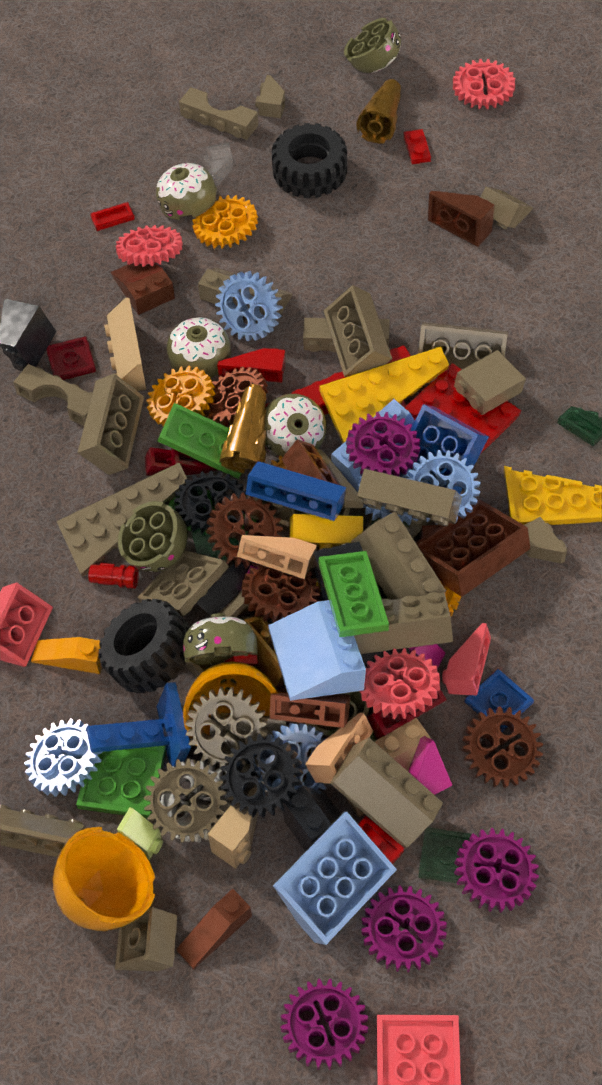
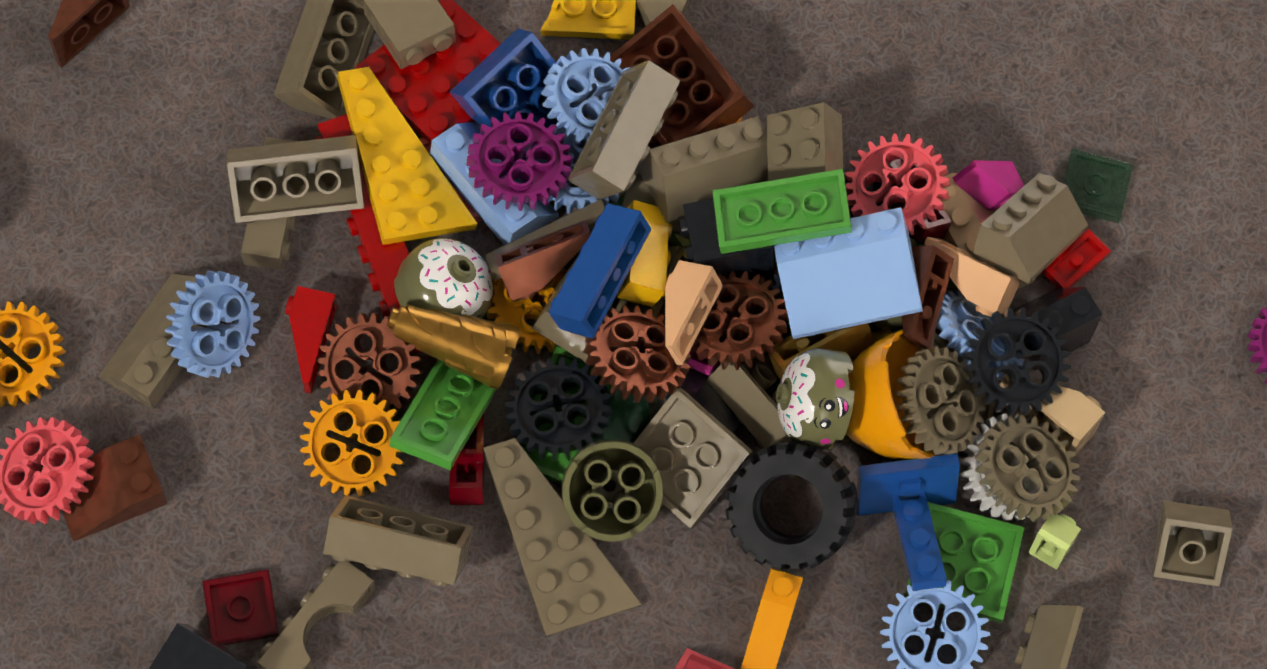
camera: 90 degrees left, 10 degrees up
(102, 880) = (1135, 575): light orange piece -> none
(112, 575) = (649, 561): red axle -> none
(125, 345) = (247, 515): tan slope -> none
(198, 344) = (265, 430): cylinder -> none
(215, 928) = (1178, 458): copper slope -> none
(333, 879) = (1144, 300): light blue slope -> none
(388, 944) = (1209, 262): magenta gear -> none
(467, 664) = (859, 122): coral slope -> none
(494, 892) = (1150, 139): magenta gear -> none
(499, 691) = (891, 95): blue tile -> none
(515, 765) = (962, 98): copper gear -> none

